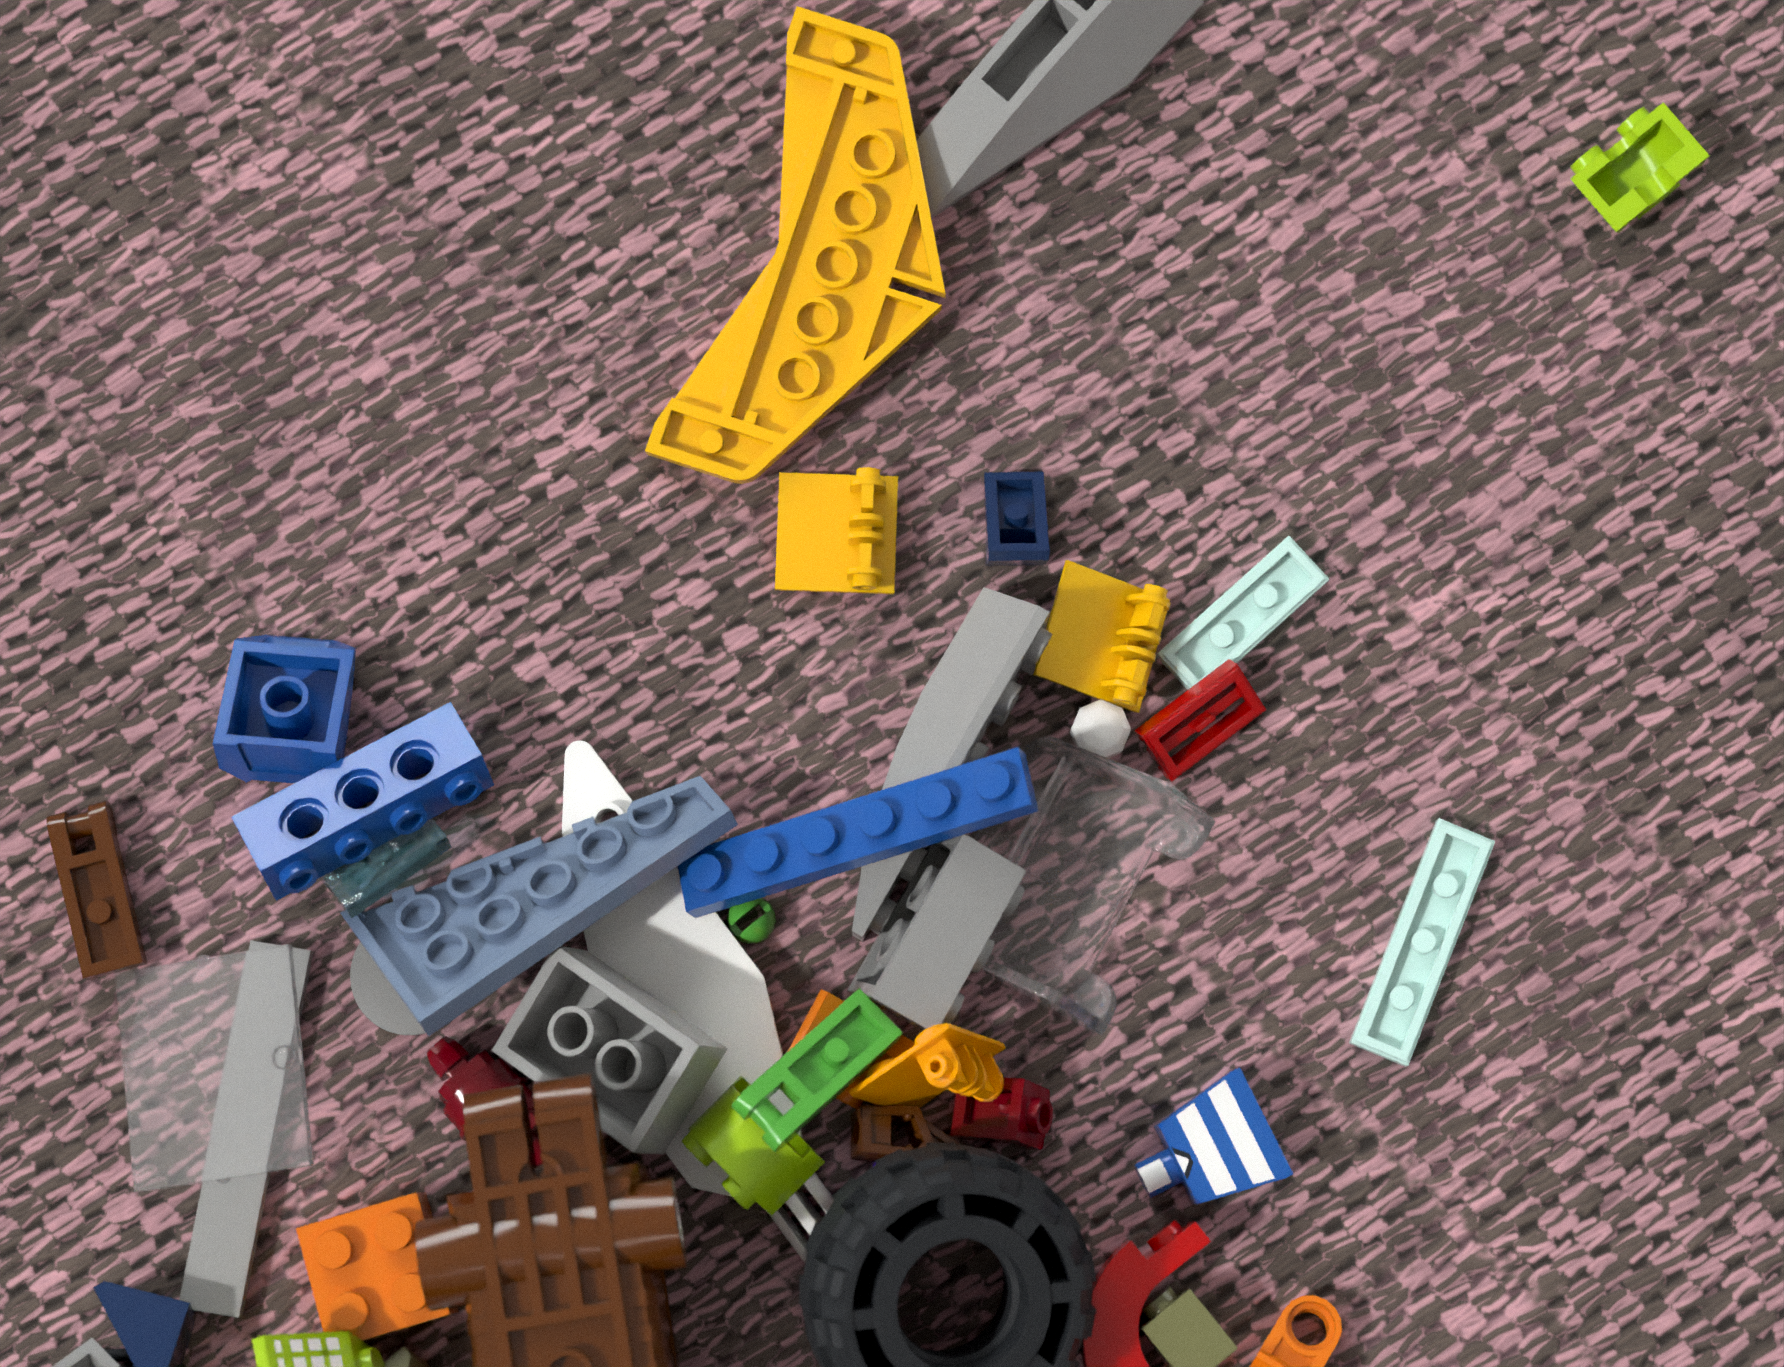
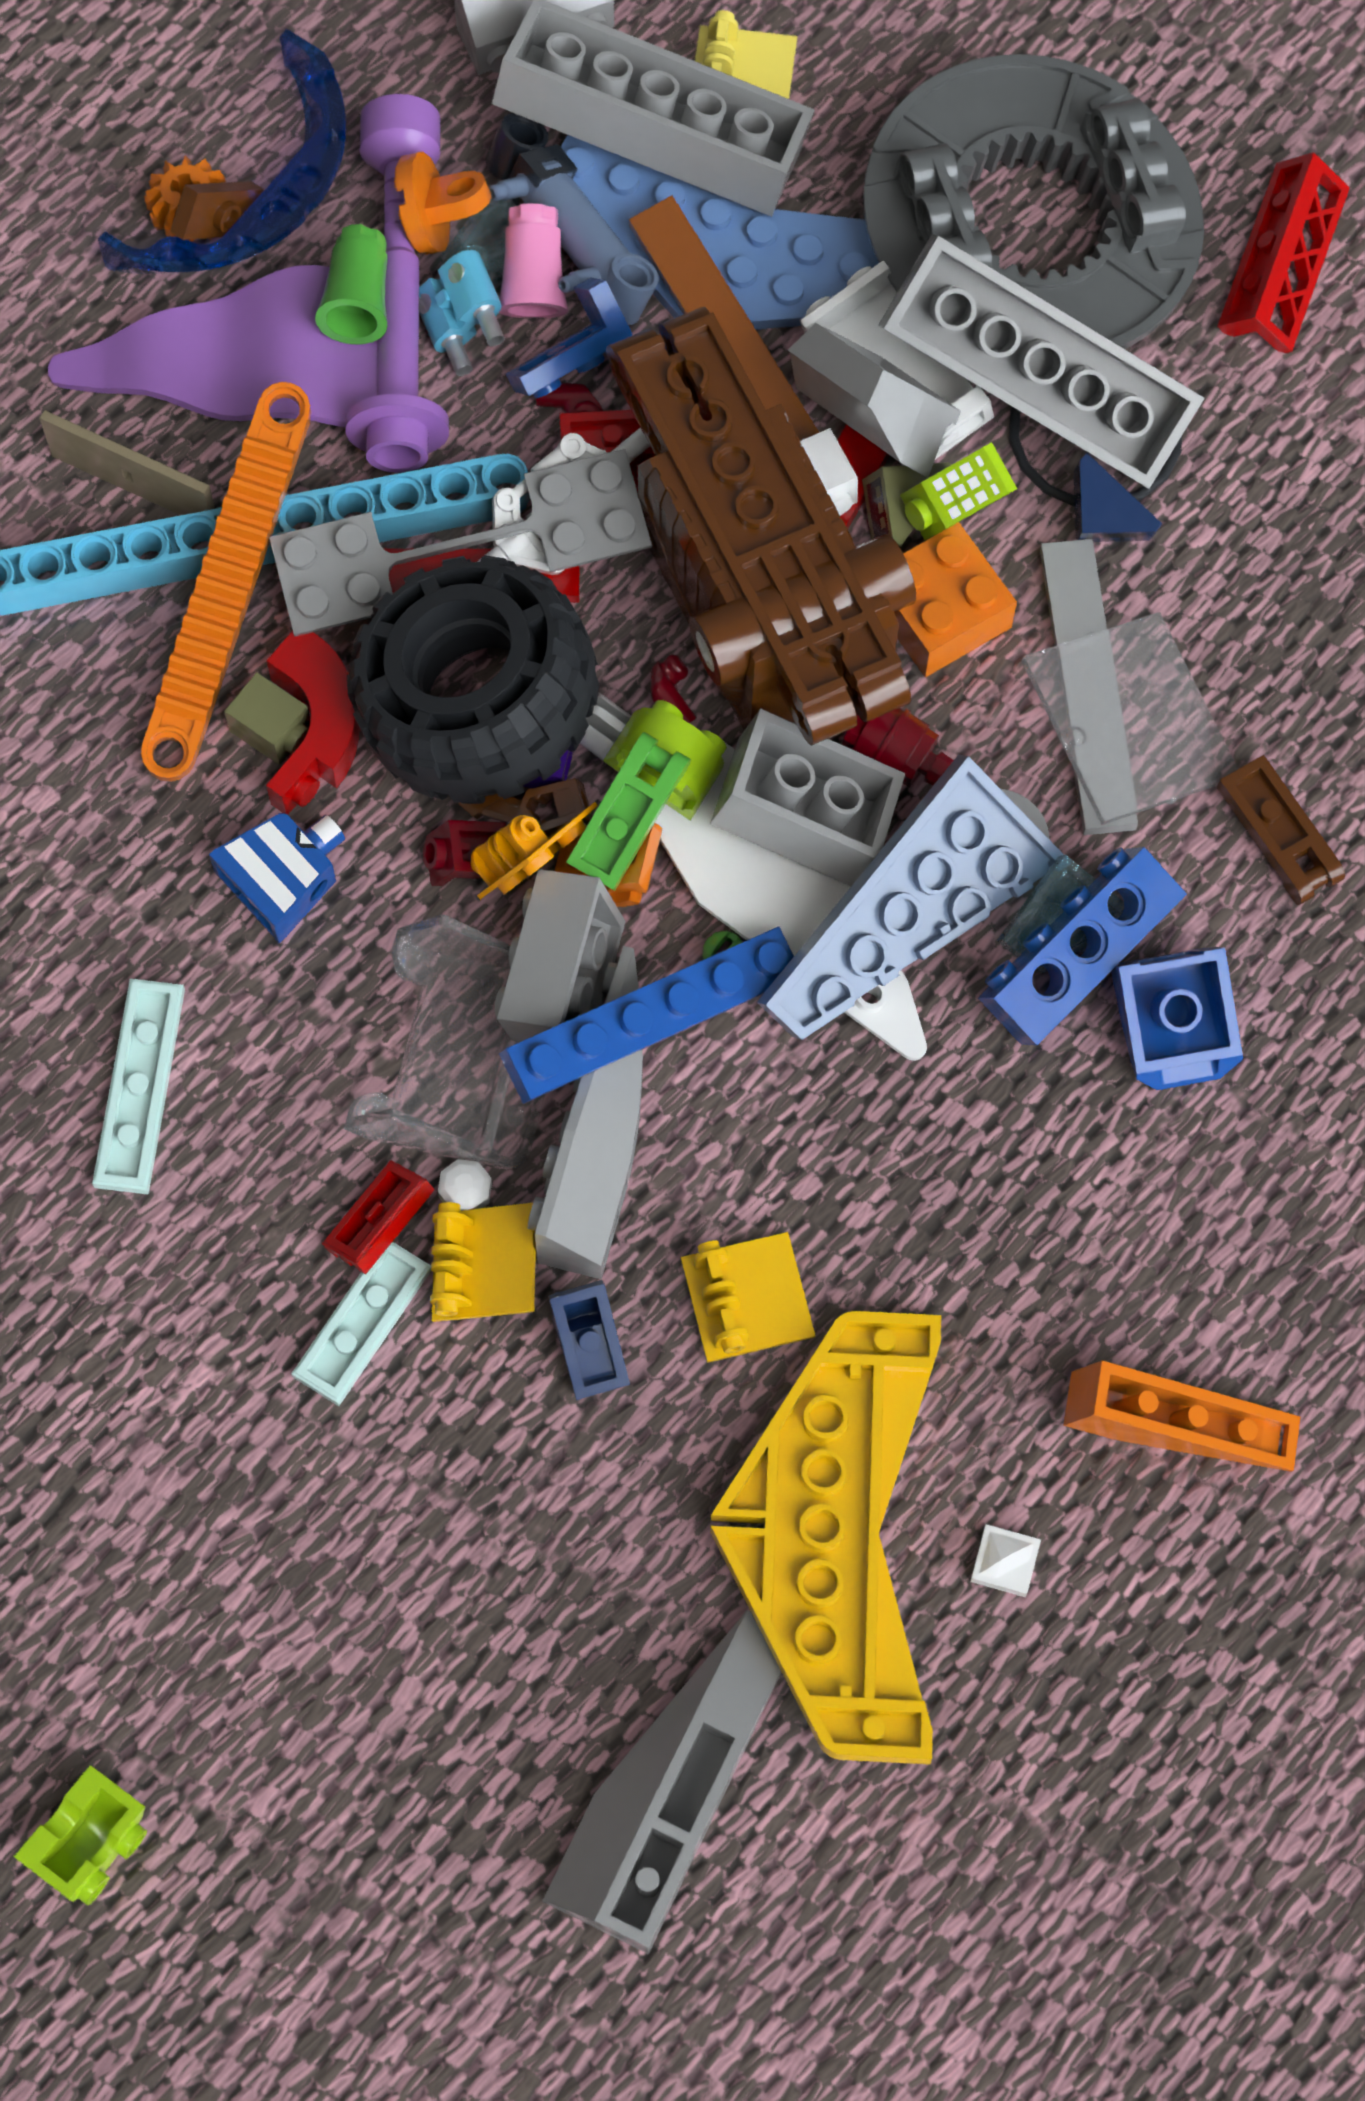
camera: 165 degrees right, 10 degrees down
(440, 283) = (1178, 1417): none -> orange slope
(658, 198) = (1005, 1560): none -> white tile
(727, 1248) = (664, 684): none -> dark red arm

